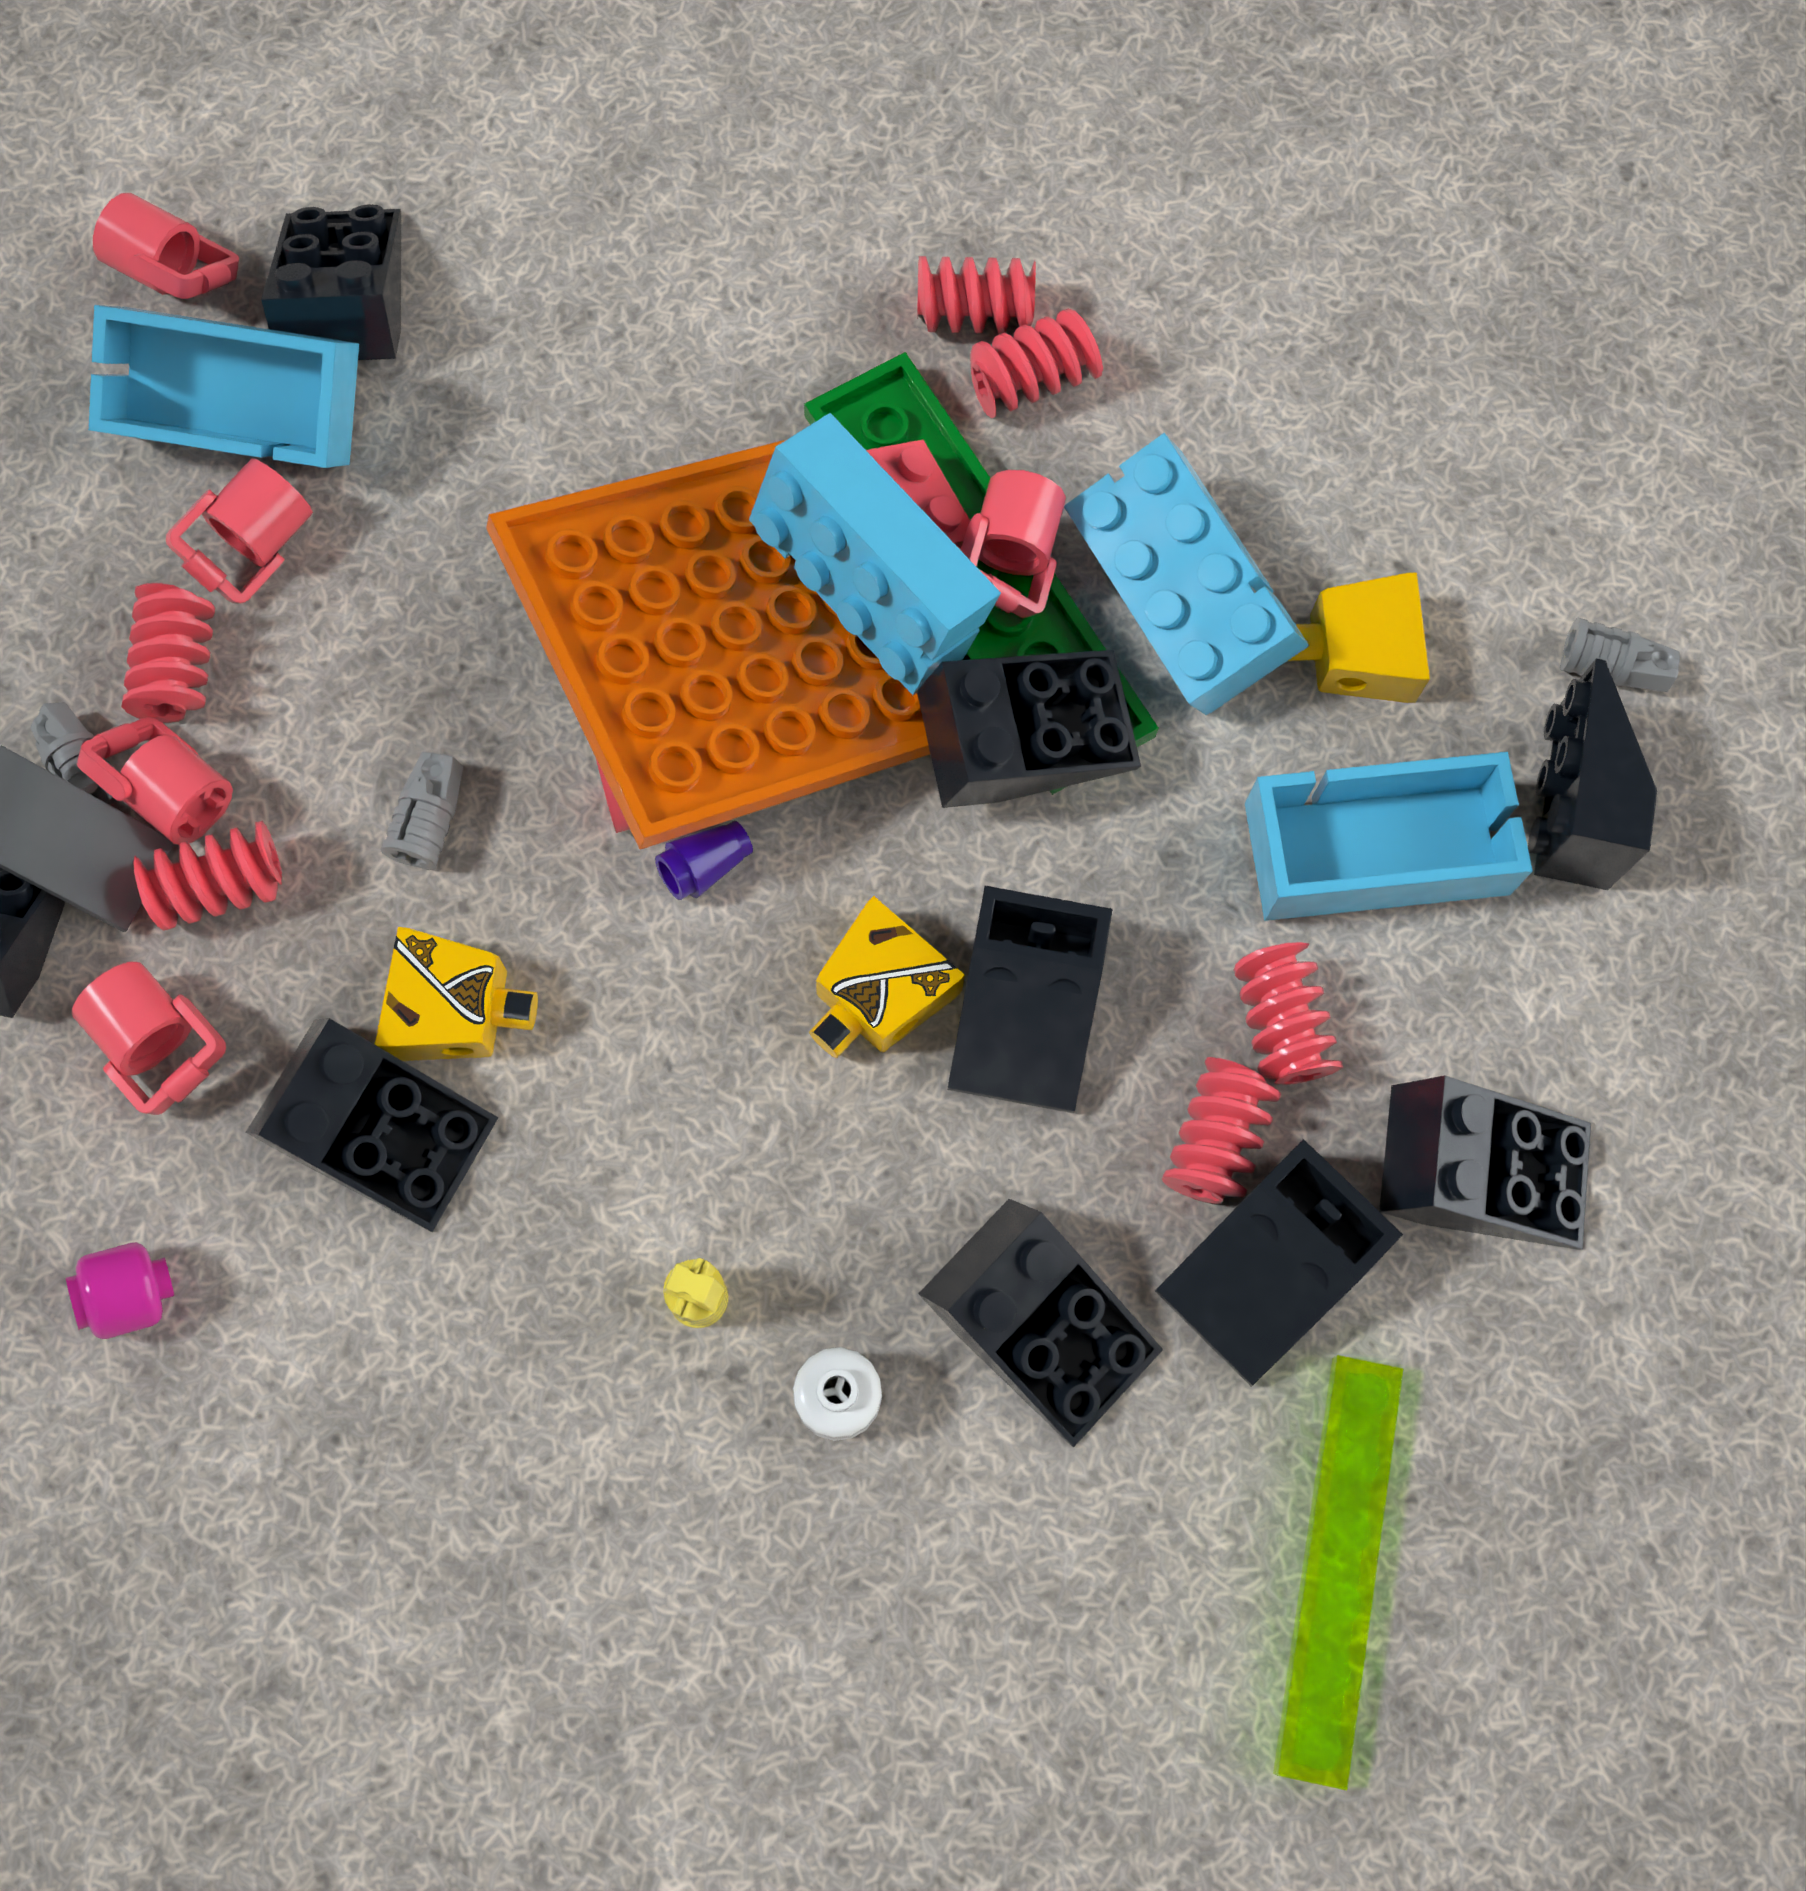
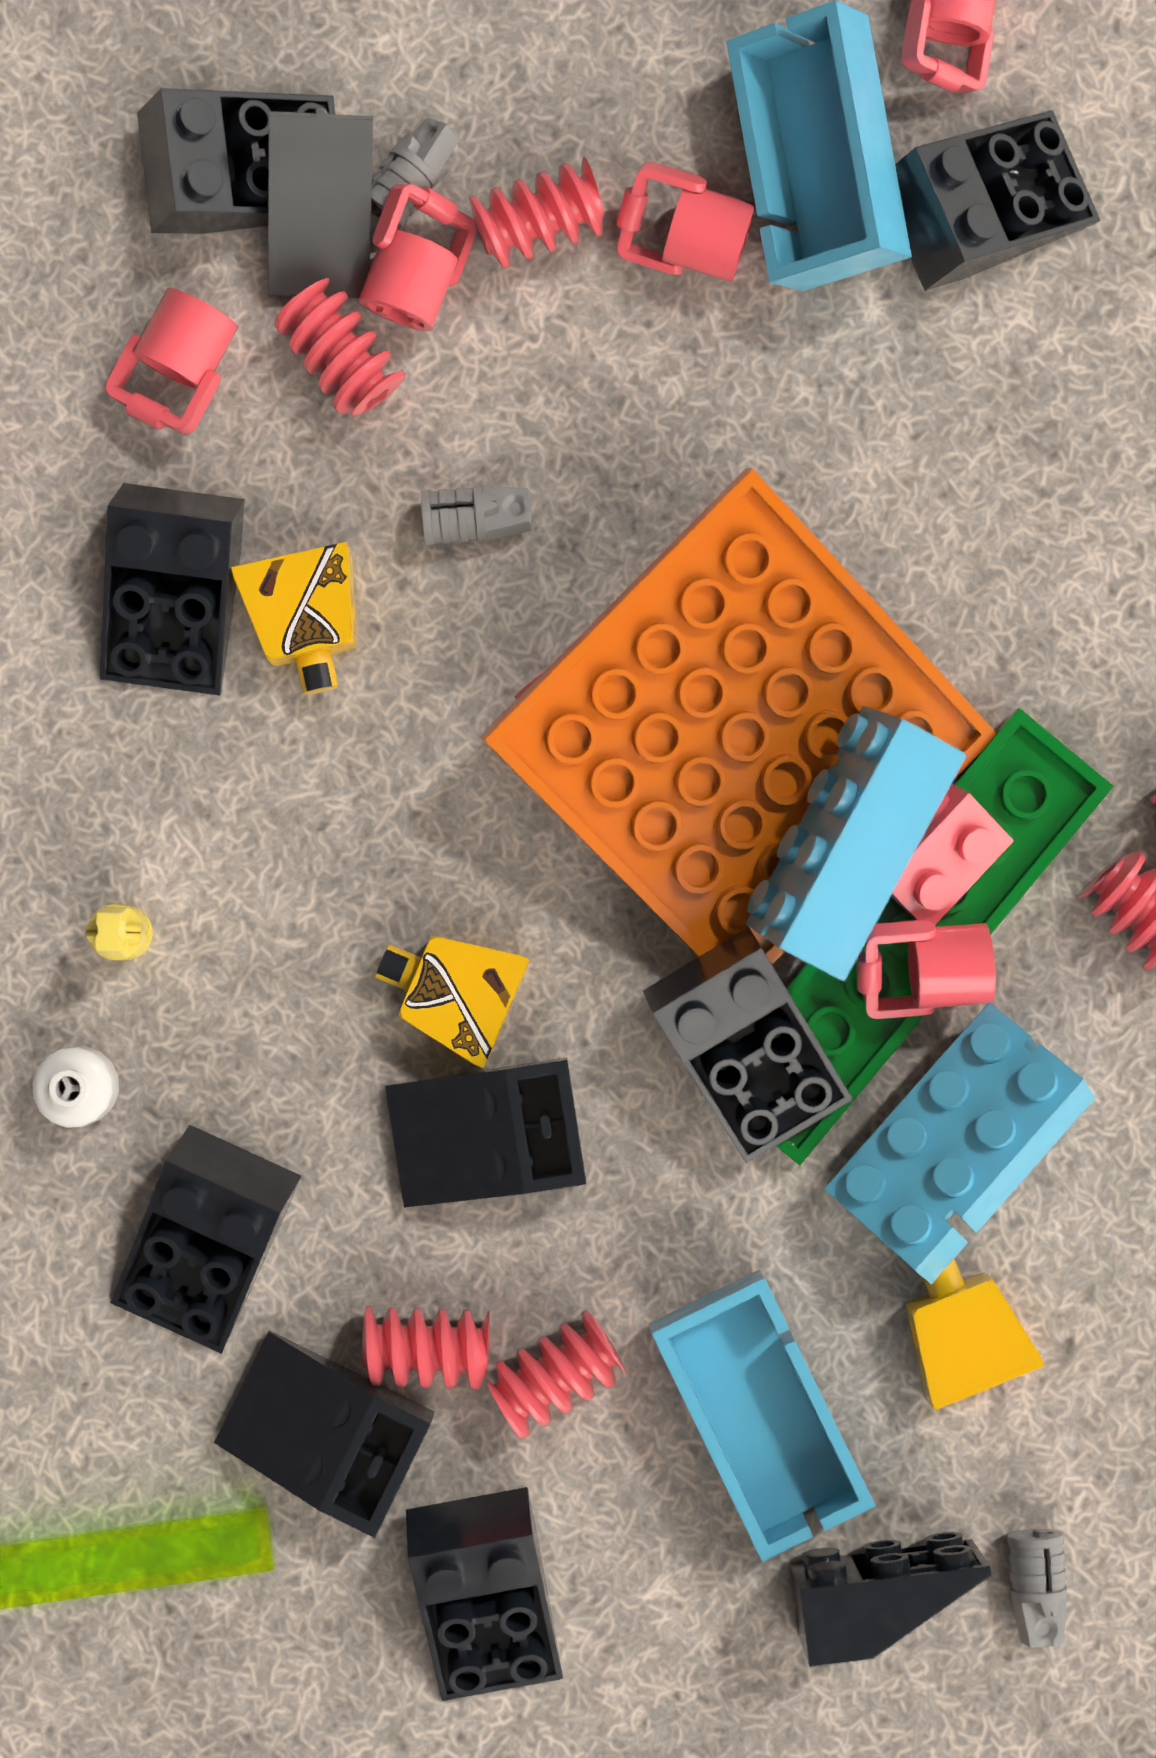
camera: 70 degrees right, 15 degrees up
(702, 859) = (510, 791): dark purple cone -> none

